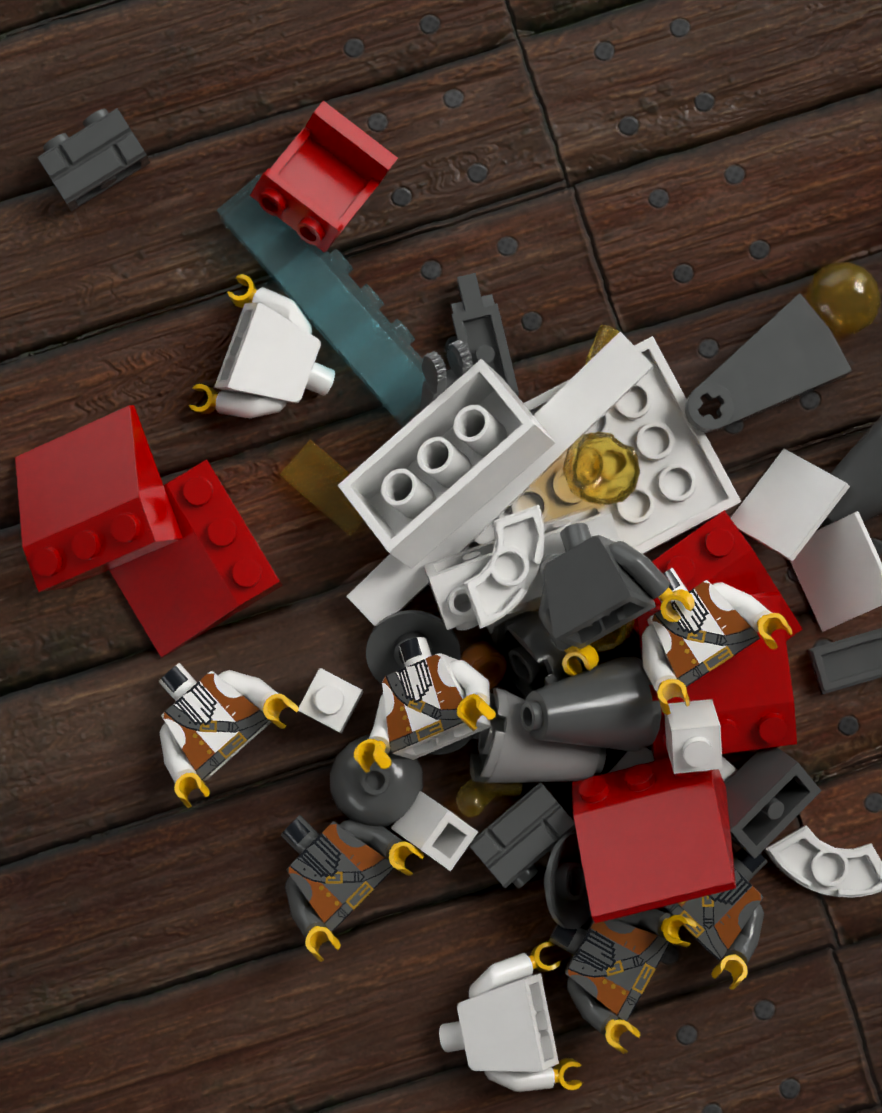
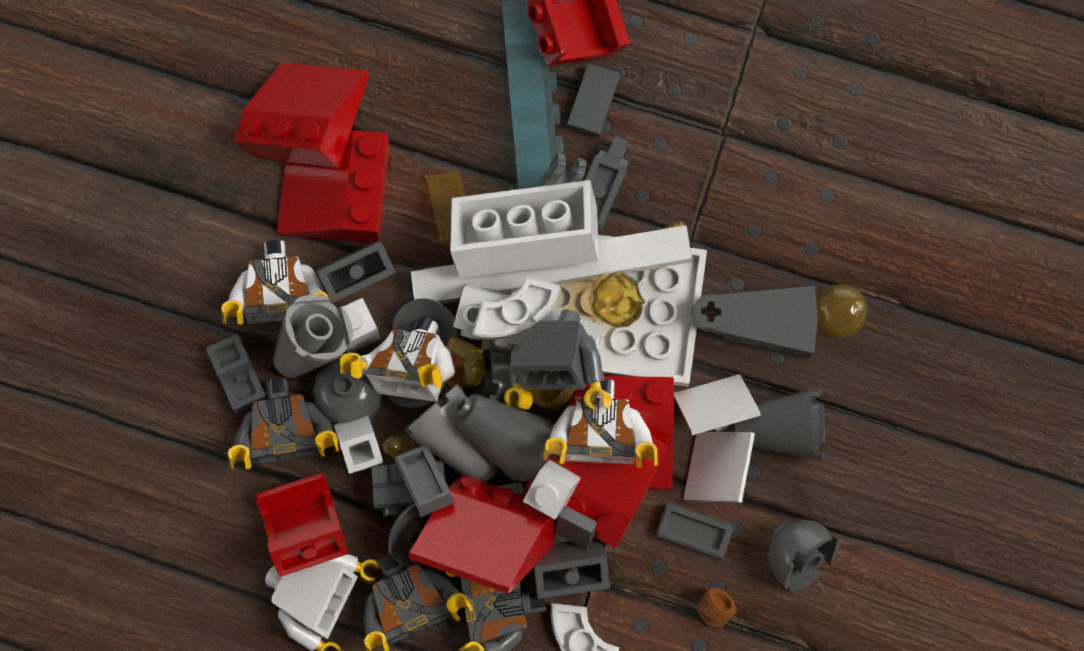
camera: 35 degrees right, 10 degrees down
(238, 847) = (236, 374): none -> dark grey slope
(267, 358) = (467, 104): white torso -> none
(286, 639) = (356, 270): none -> dark grey brick
(303, 753) = (311, 335): none -> light grey cone
(399, 250) = (593, 100): none -> dark grey tile
(441, 964) = (301, 524): none -> red panel
(490, 648) = (471, 358): none -> clear yellow arm
(542, 823) = (424, 480): none -> dark grey tile
(744, 754) = (575, 527): none -> dark grey tile

